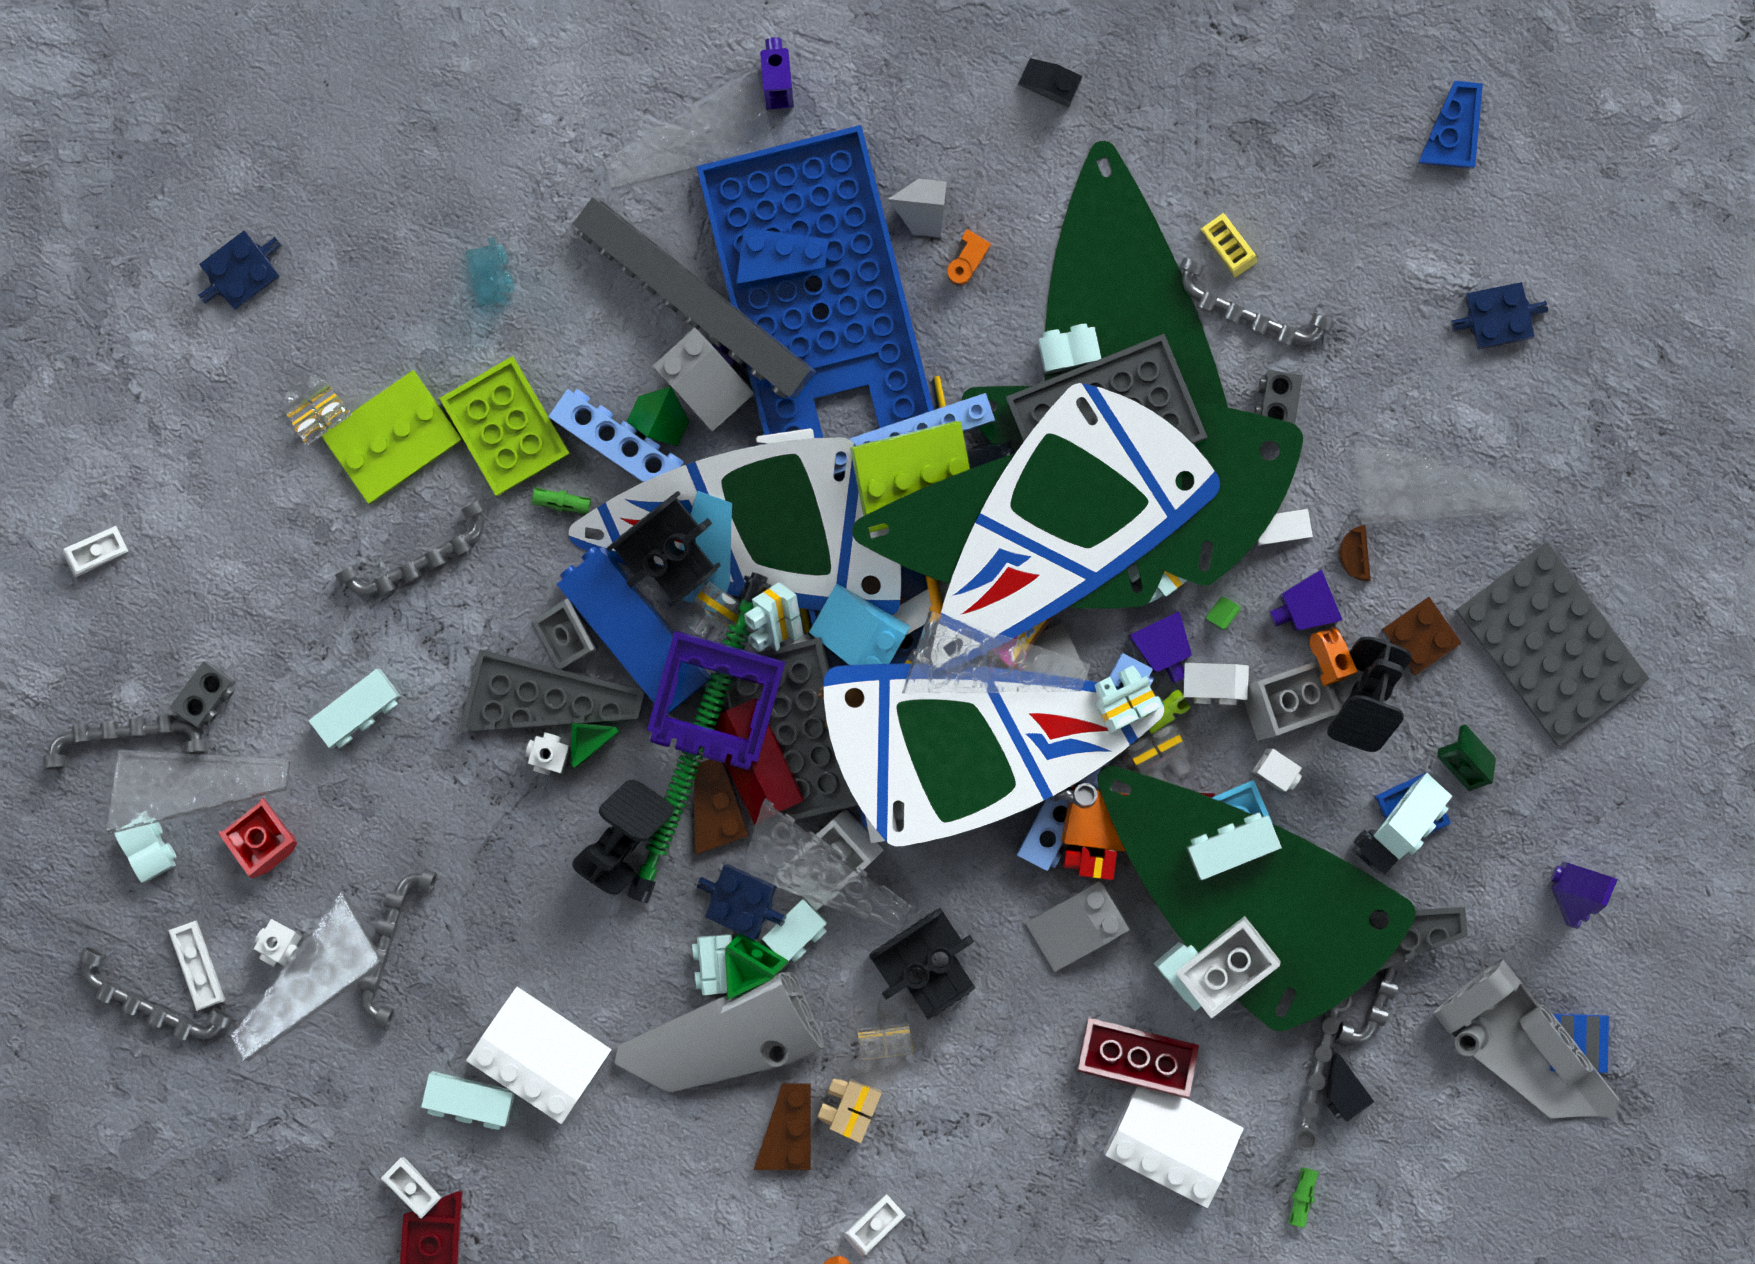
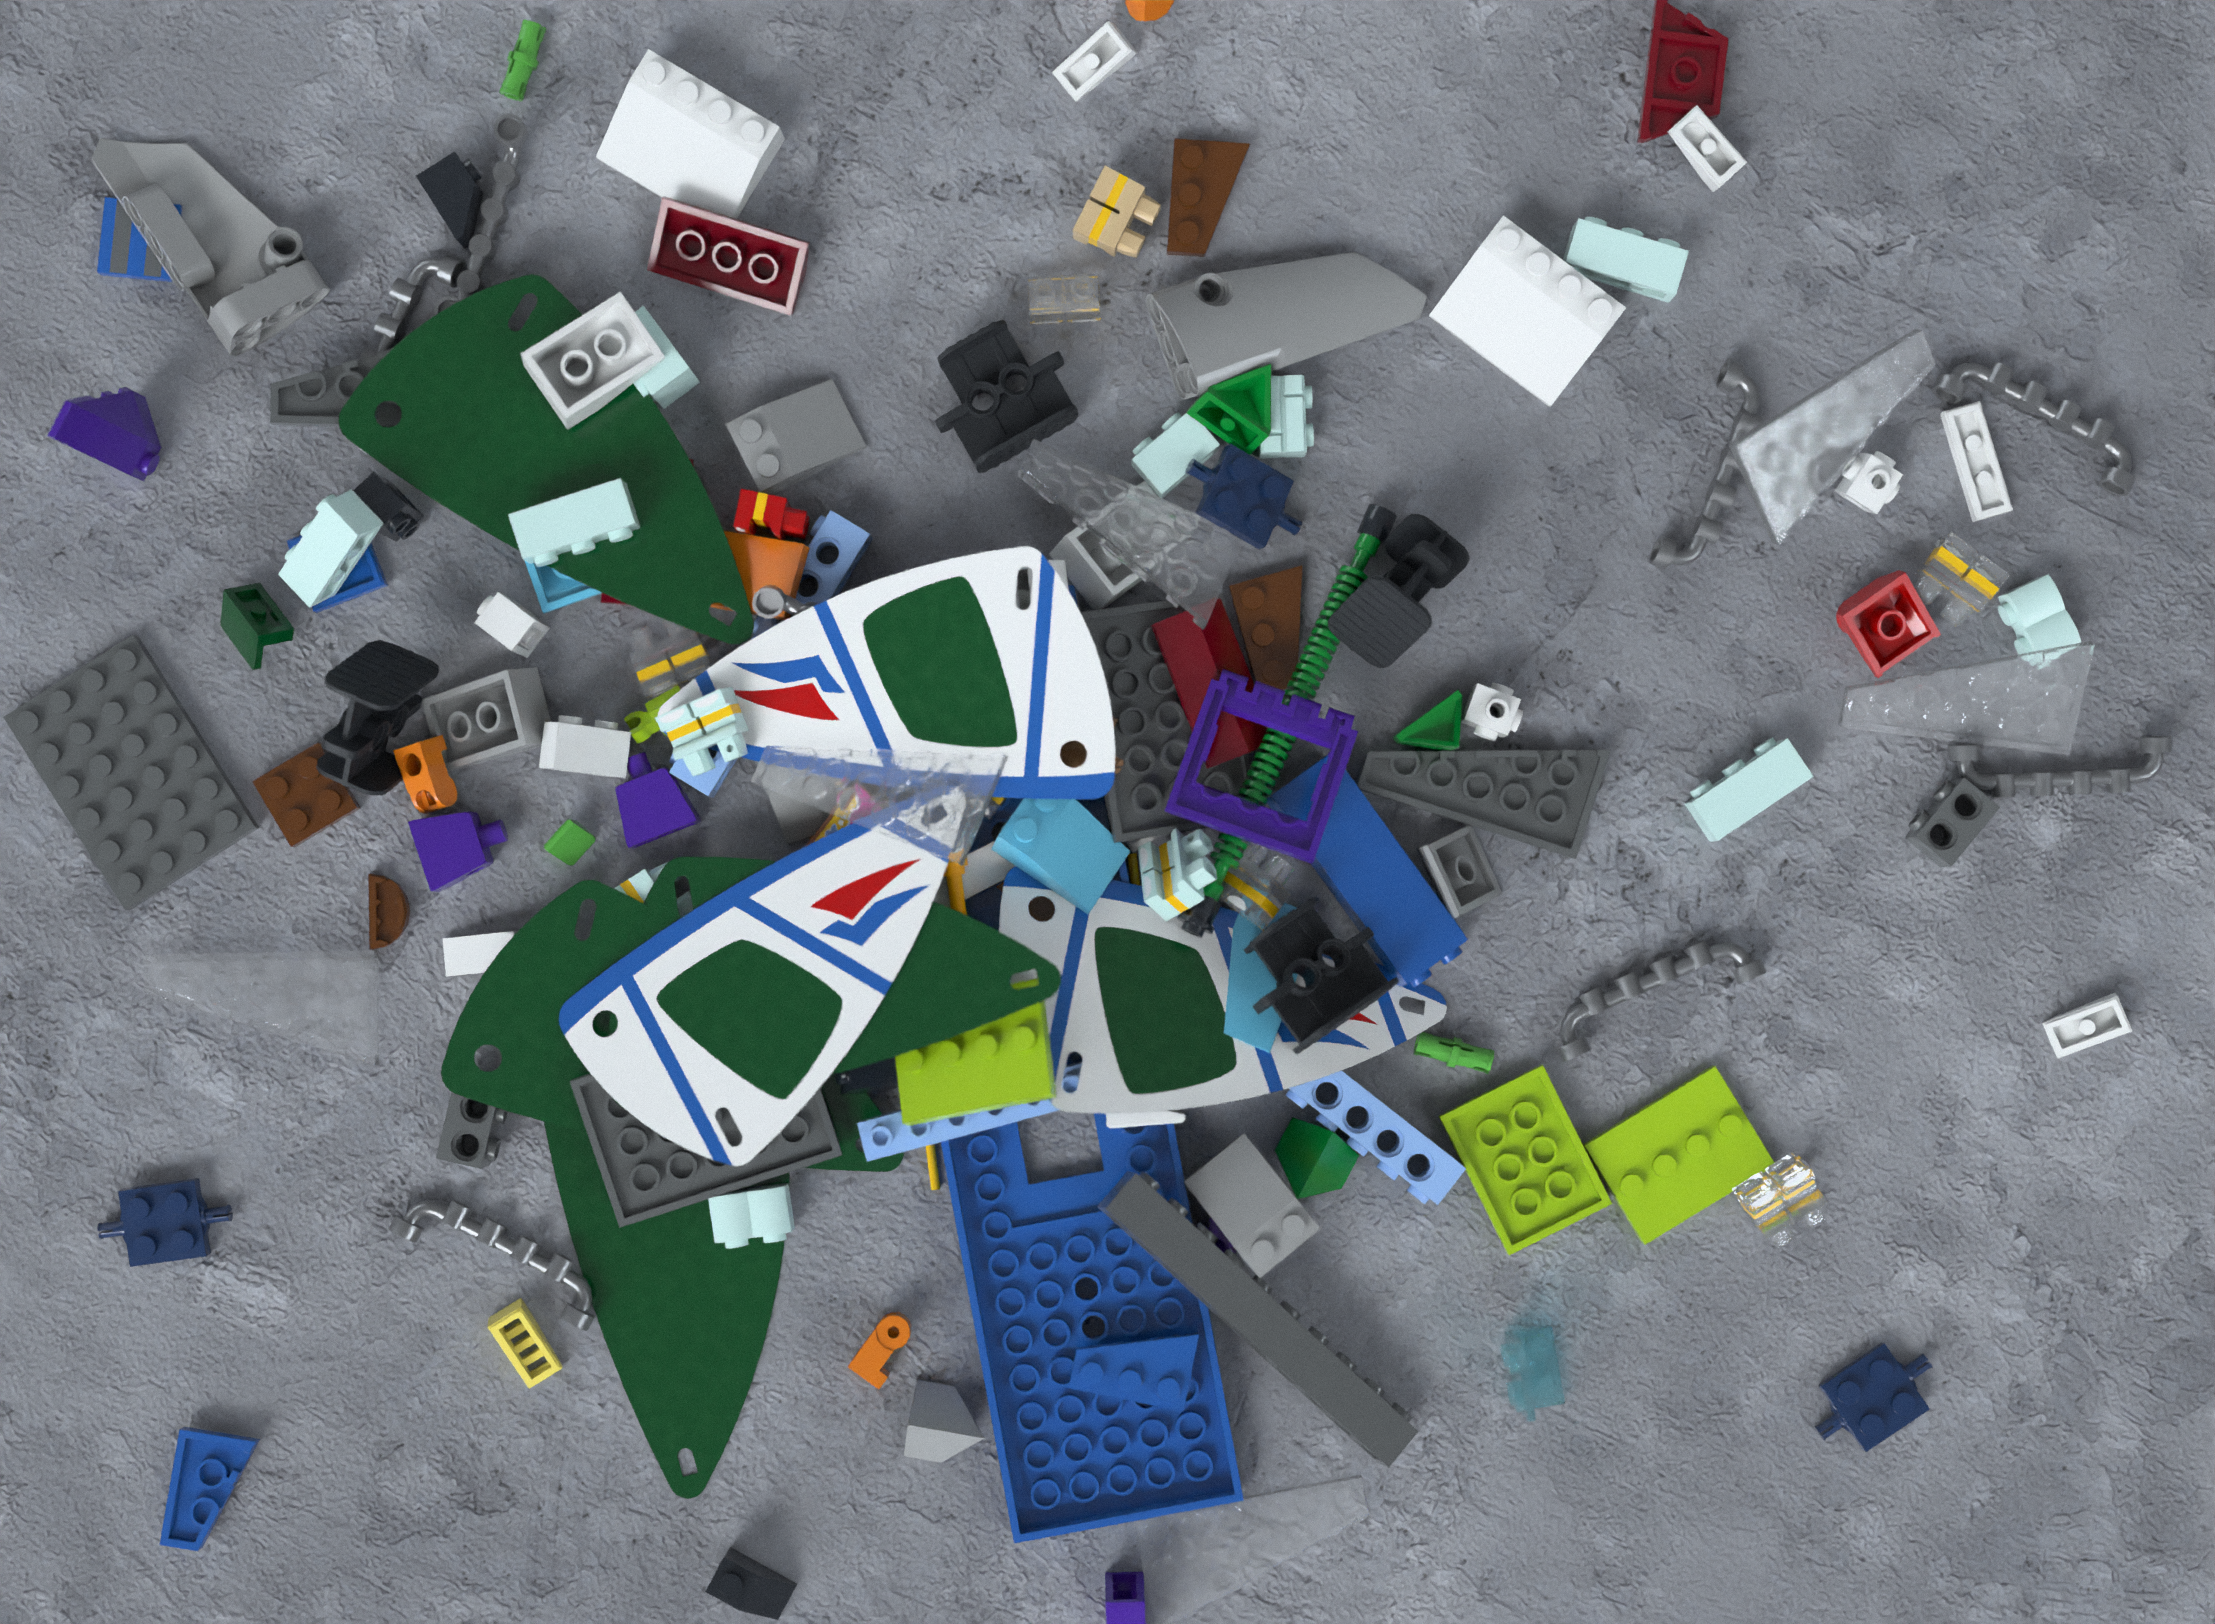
camera: 175 degrees left, 0 degrees up
(204, 877) = (1960, 577): none -> clear hips

